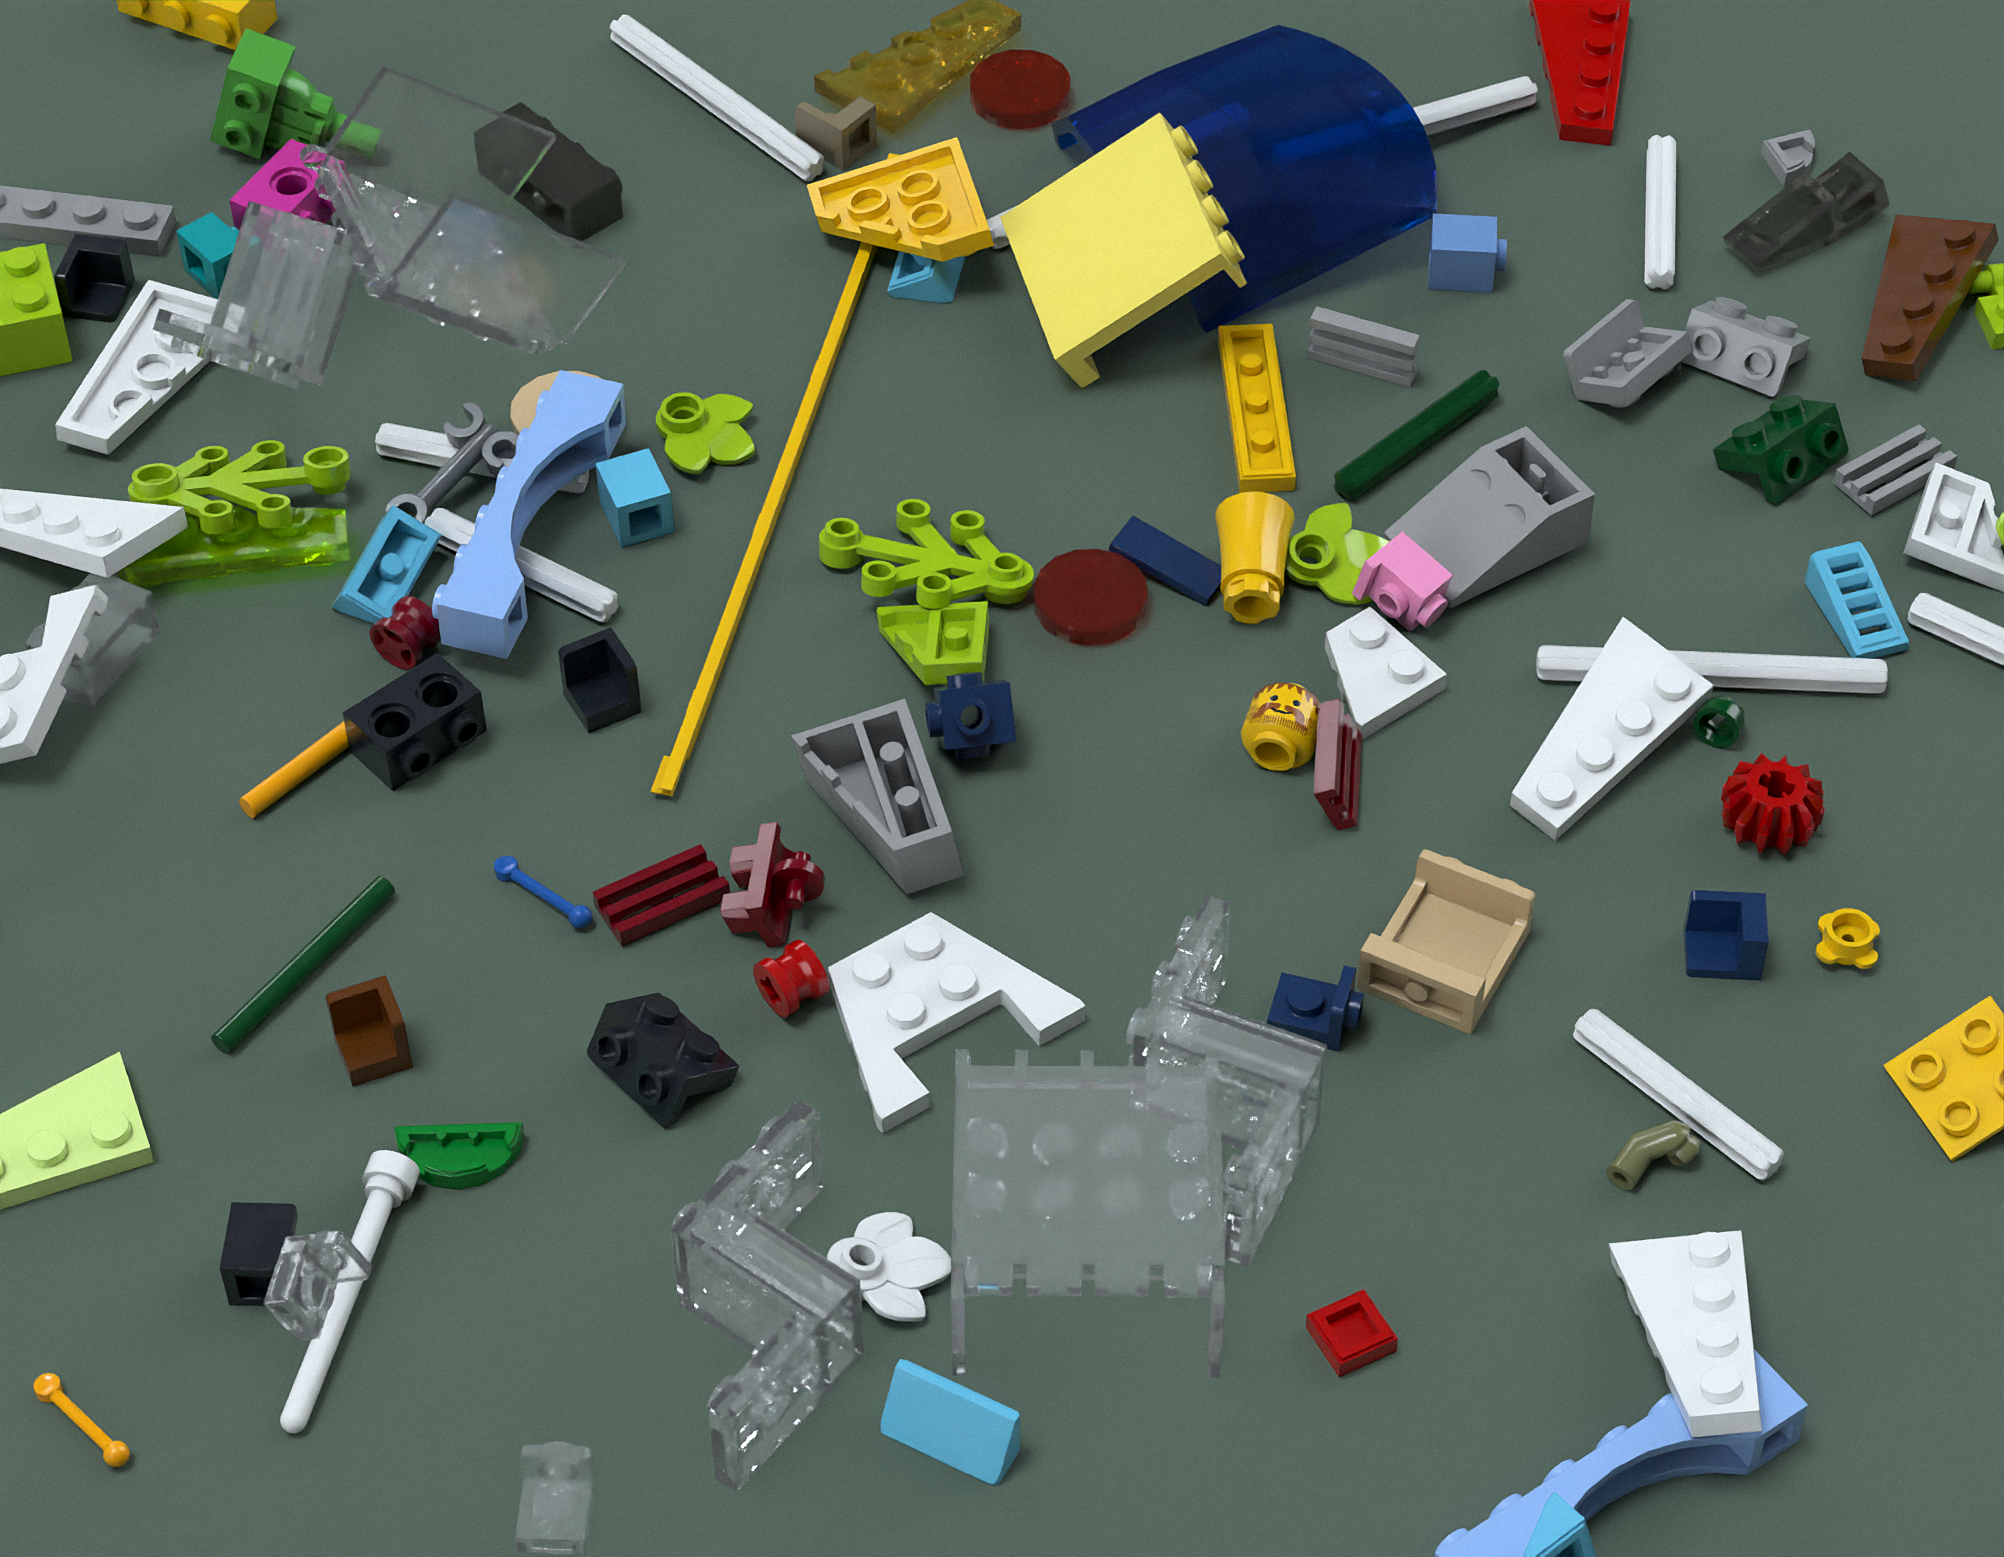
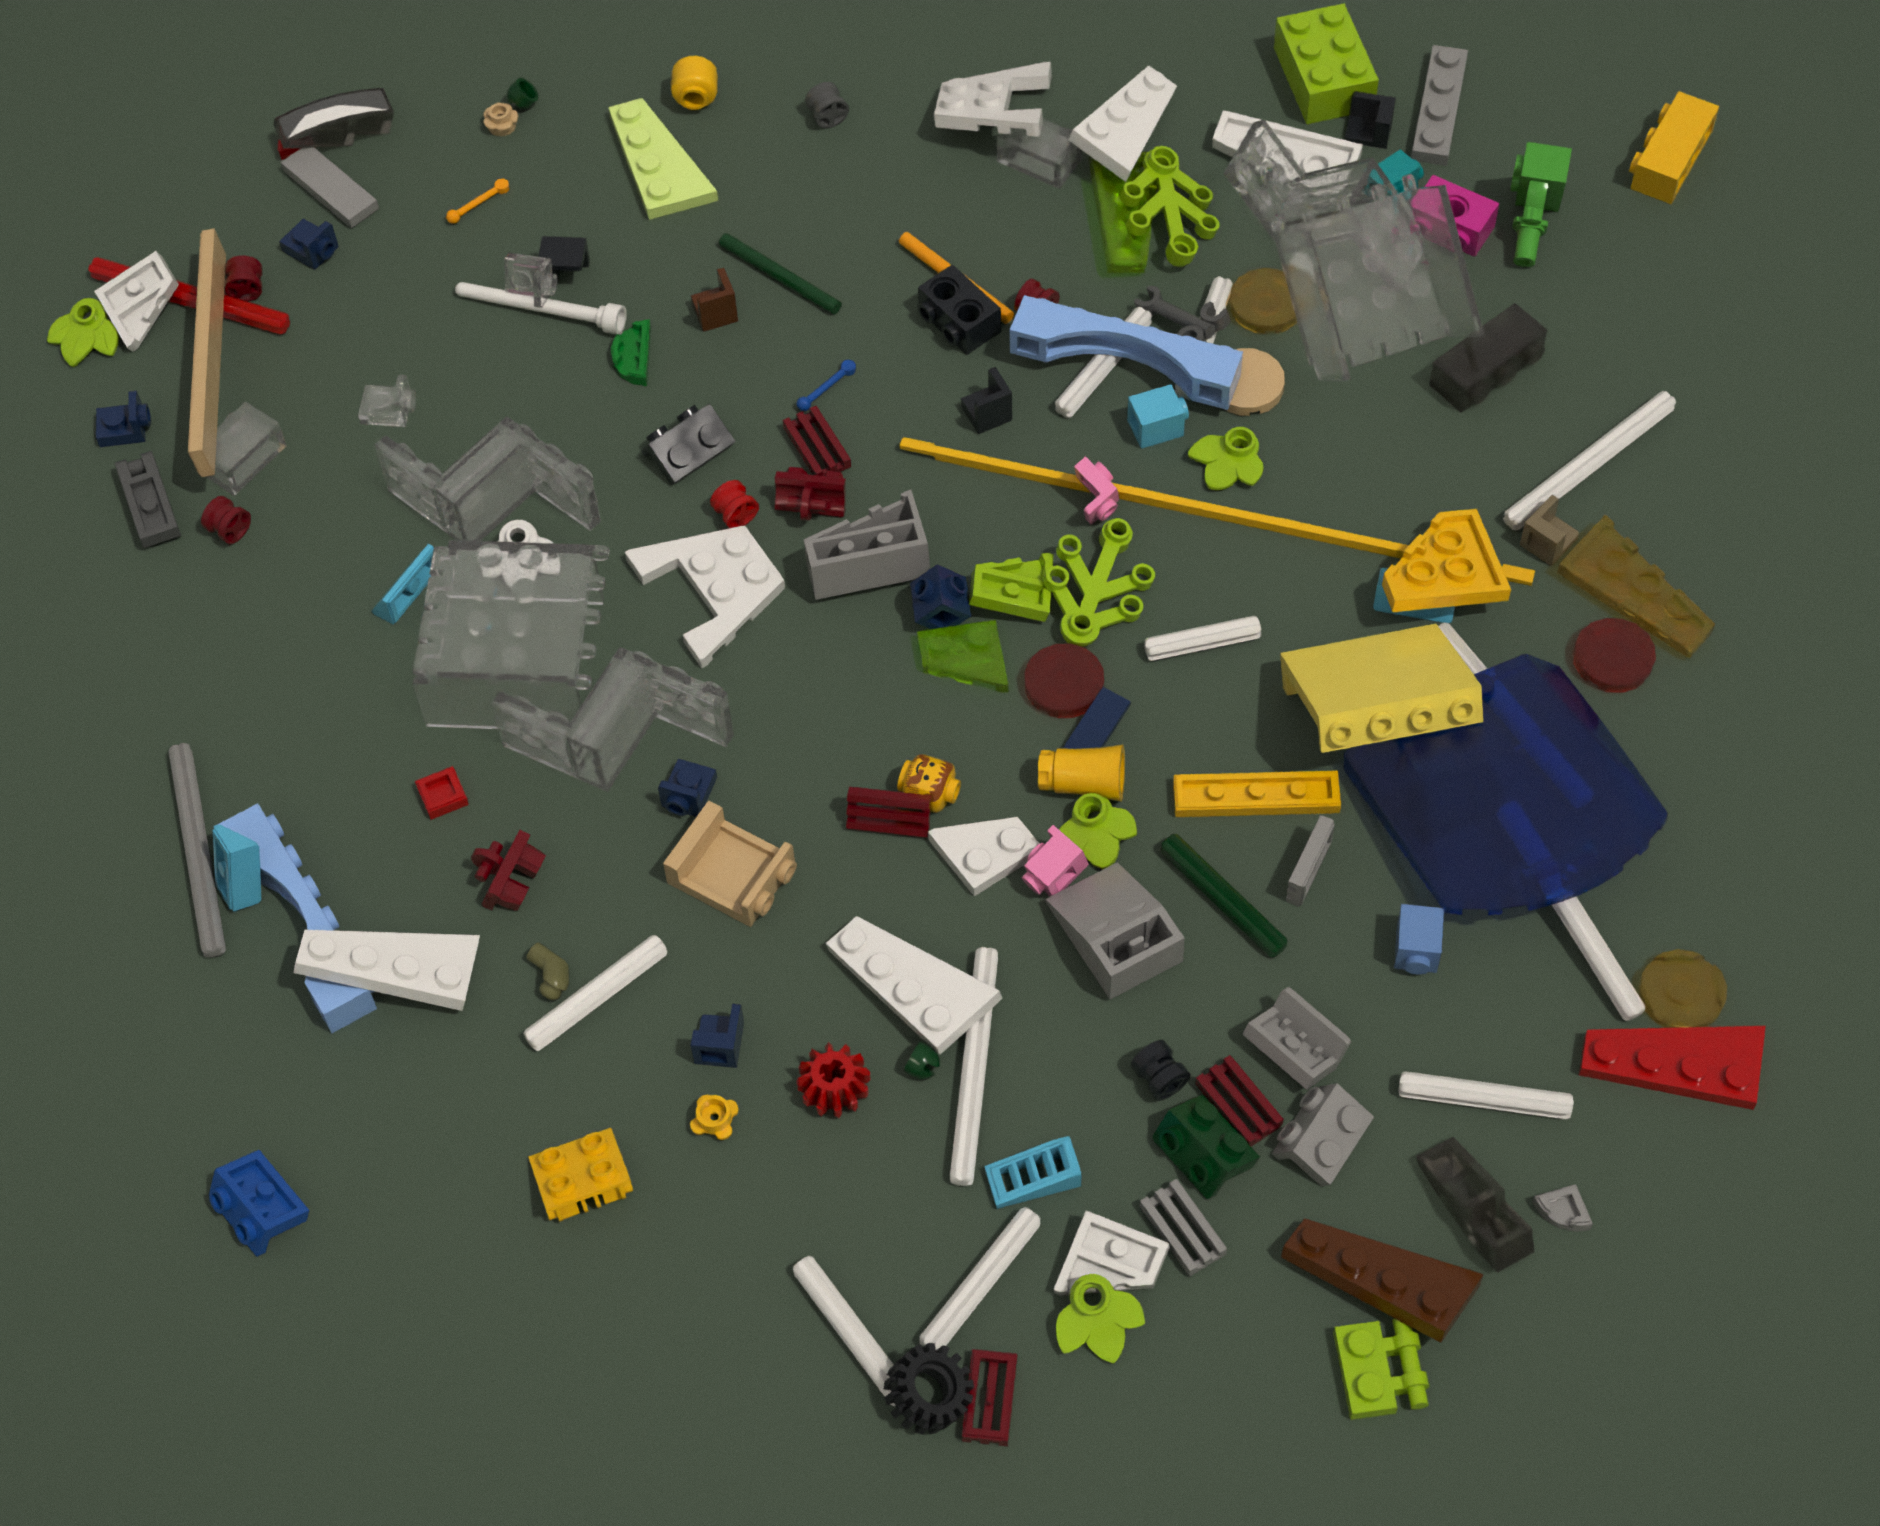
camera: 95 degrees right, 10 degrees up
(387, 566) = (1098, 290): medium azure slope -> none
(417, 391) = (1262, 301): none -> clear yellow tile
(774, 543) = (1098, 482): none -> bright pink bracket
(1013, 457) = (1202, 638): none -> white axle
(1053, 703) = (964, 653): none -> clear neon green wing
(1487, 53) = (1682, 990): none -> clear yellow tile
(1496, 1213) = (504, 889): none -> dark red hips
(1697, 478) = (1160, 1070): none -> black wheel
(1704, 416) = (1217, 1073): none -> dark red tile

